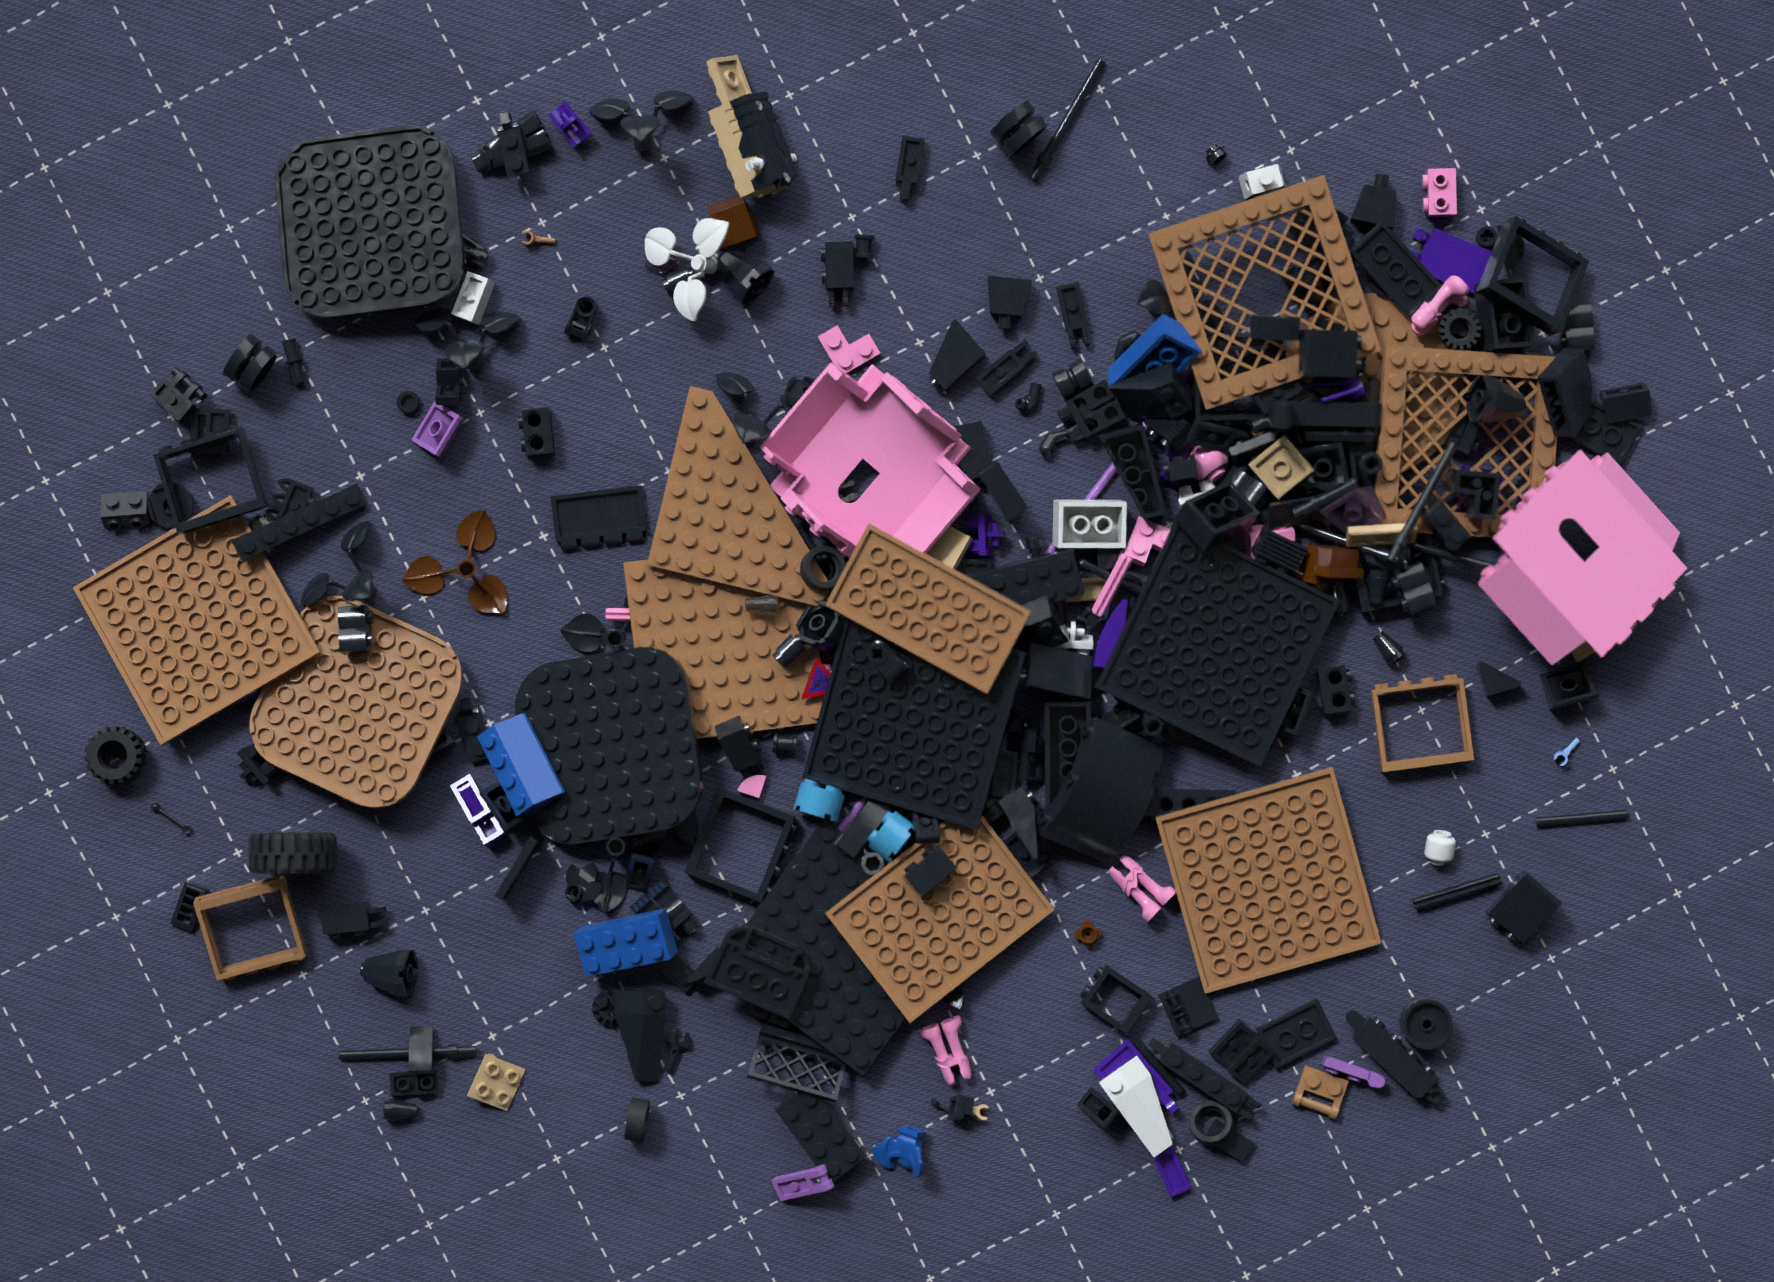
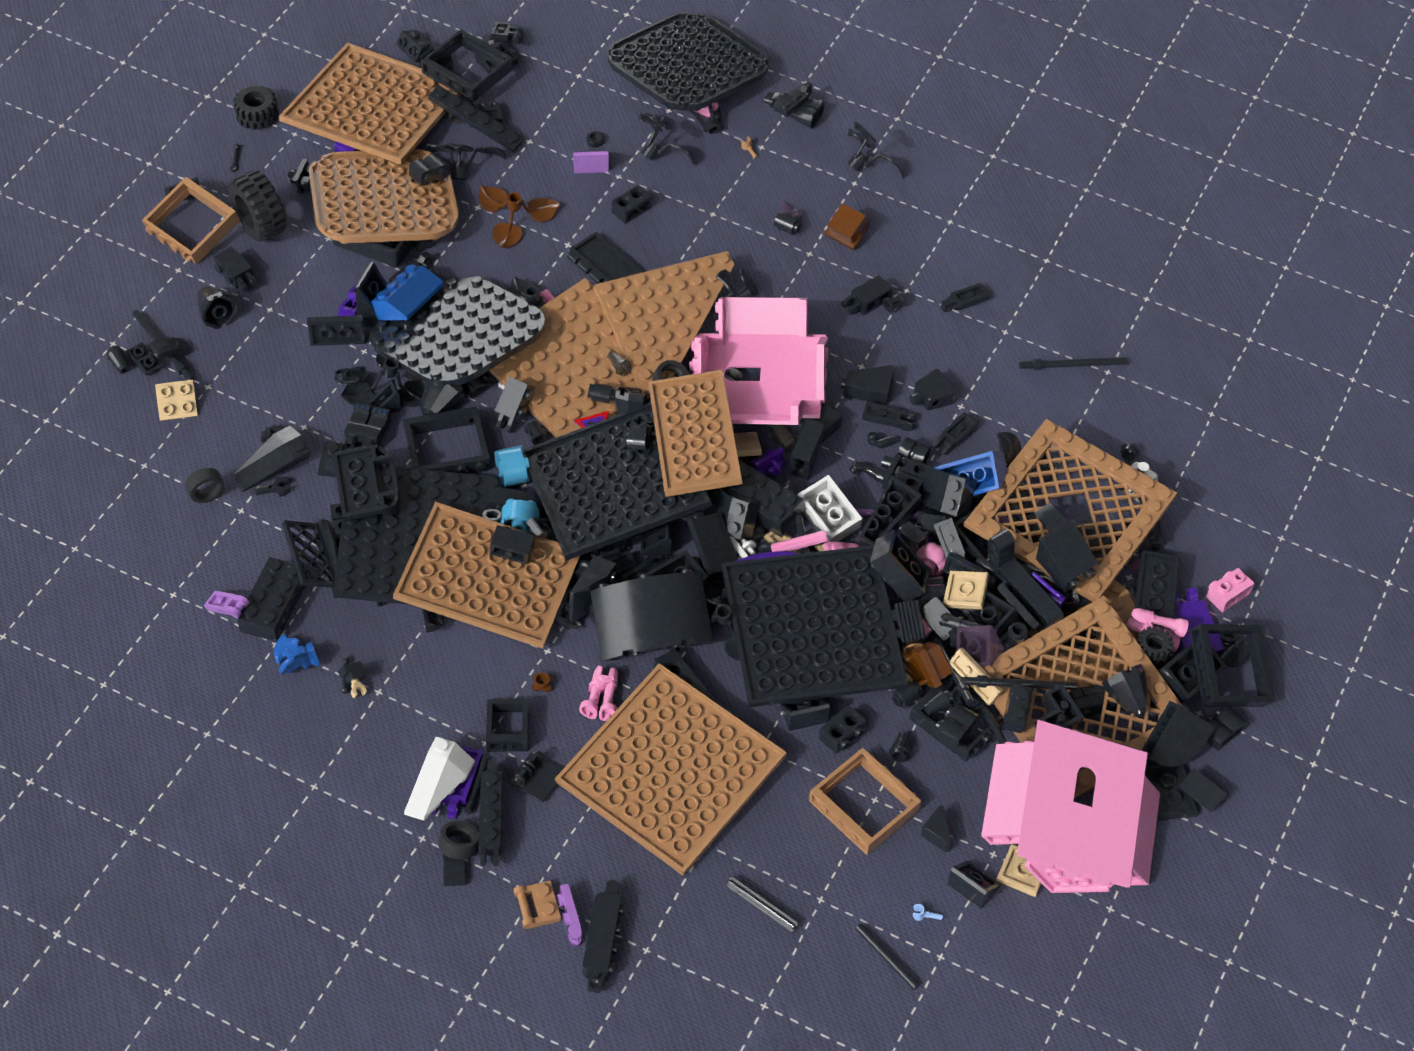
camera: 55 degrees right, 35 degrees down
(250, 363) = (554, 49): black wheel -> none
(294, 361) = (573, 75): black axle -> none
(448, 383) = (625, 147): black brick -> none
(473, 298) = (686, 133): white hinge -> none
(569, 124) = (831, 124): dark purple hips -> none
(581, 319) = (723, 189): black piece -> none
(625, 942) = (328, 409): blue brick -> none
(708, 236) = (808, 225): white plant -> none
(744, 274) = (820, 252): black cone -> none
(749, 133) = (908, 200): piece -> none
(753, 785) = (493, 433): bright pink tile -> none
(848, 356) = (820, 325): bright pink plate -> none
(946, 1060) = (385, 654): bright pink piece -> none
(1016, 126) = (1043, 332): black wheel -> none
(1098, 1107) = (413, 763): black slope -> none
(1172, 1172) = (401, 842): dark purple tile -> none
(1241, 1051) = (529, 830): black slope -> none
(1297, 1032) = (570, 861): black tile -> none
(1376, 203) = (1192, 556): black torso -> none
(1412, 1020) = (646, 938): black wheel -> none
(1440, 847) = (786, 868): white head -> none
(1522, 907) = (787, 951): black slope -> none

